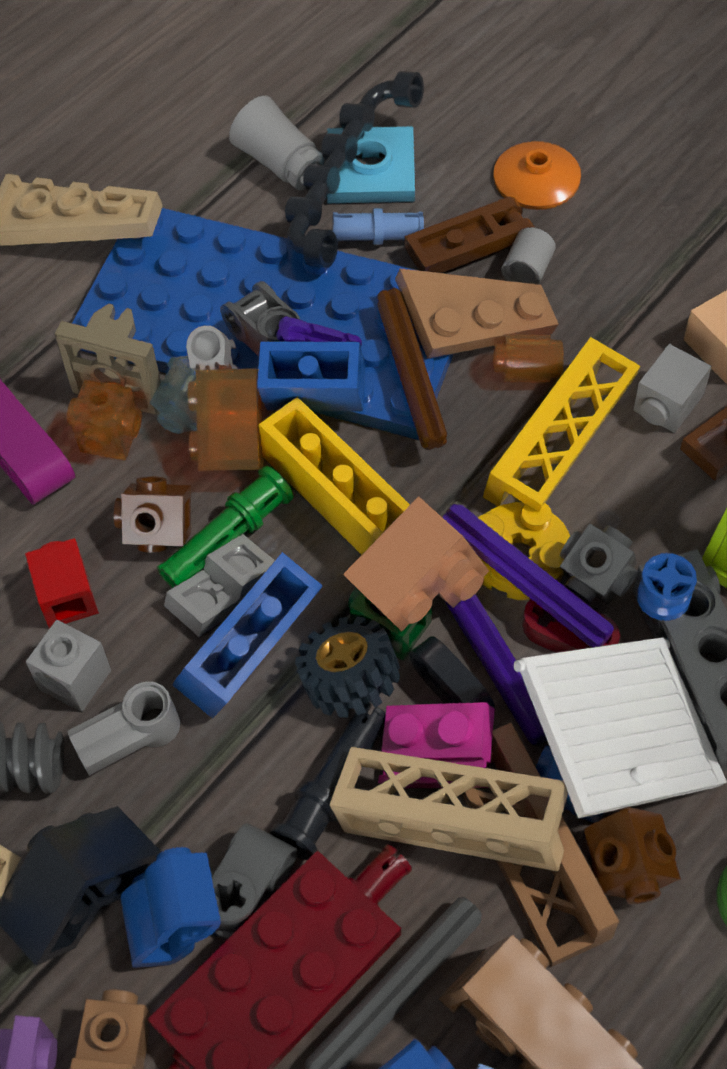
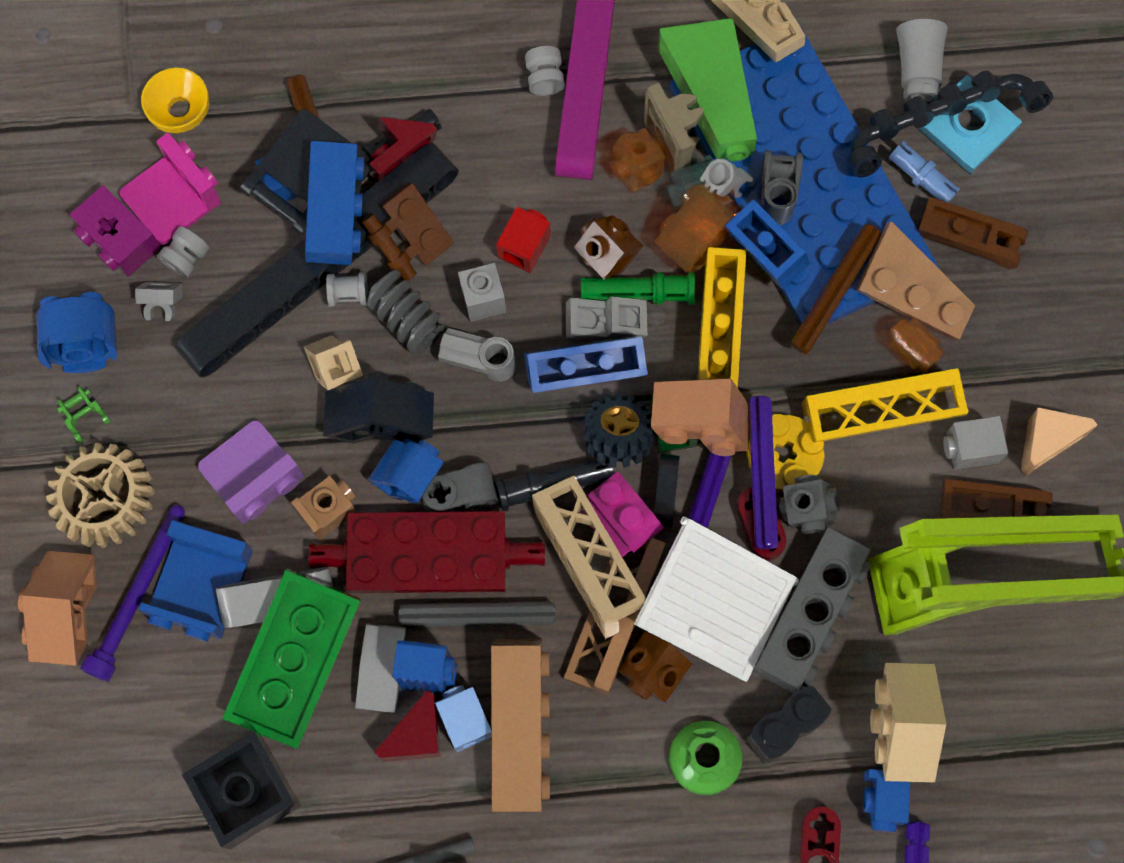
camera: 45 degrees right, 15 degrees up
(88, 273) = (709, 64): none -> bright green slope
(301, 331) = (795, 224): dark purple axle -> none
(528, 256) = (989, 280): light grey beam -> none
(537, 175) = (1058, 237): orange dish -> none
(674, 576) = (828, 547): blue wheel -> none

